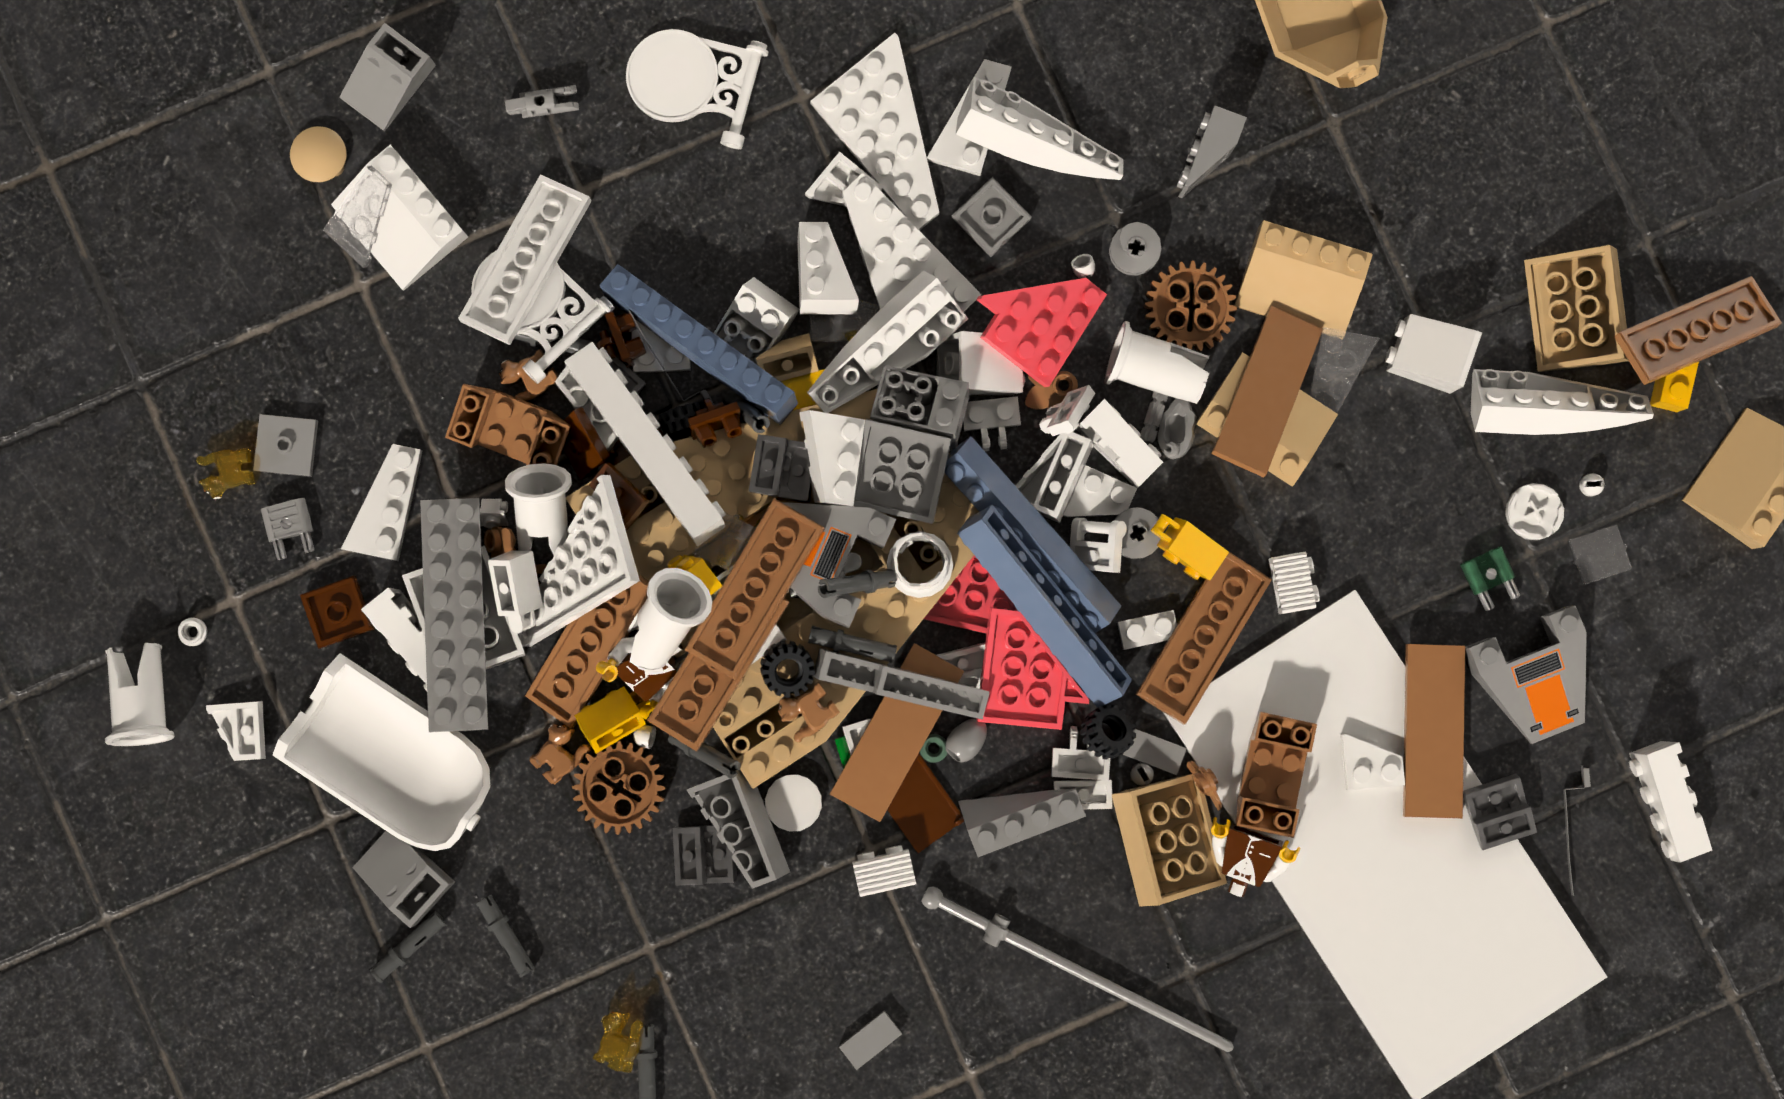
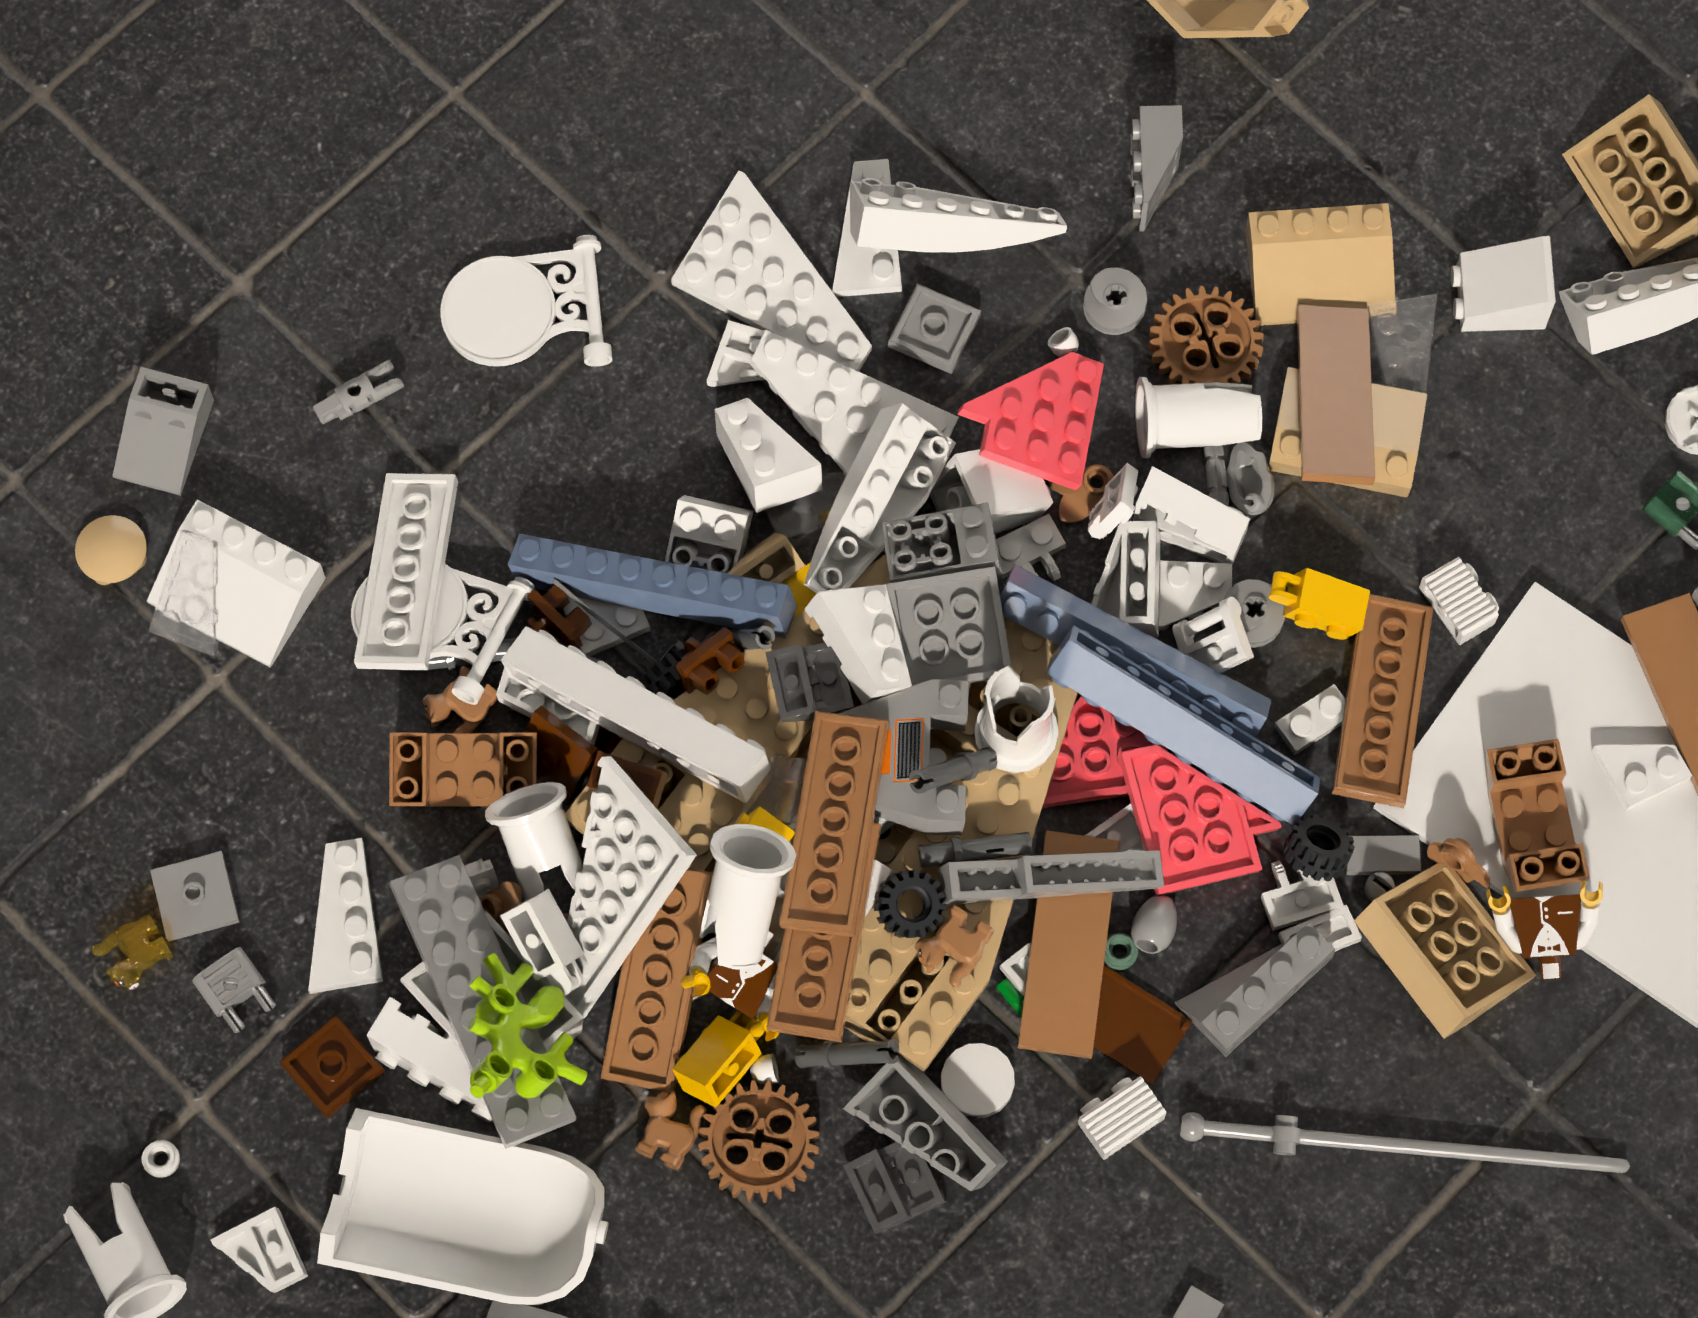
camera: 20 degrees left, 15 degrees down
(451, 665) = (500, 1021): none -> lime plant

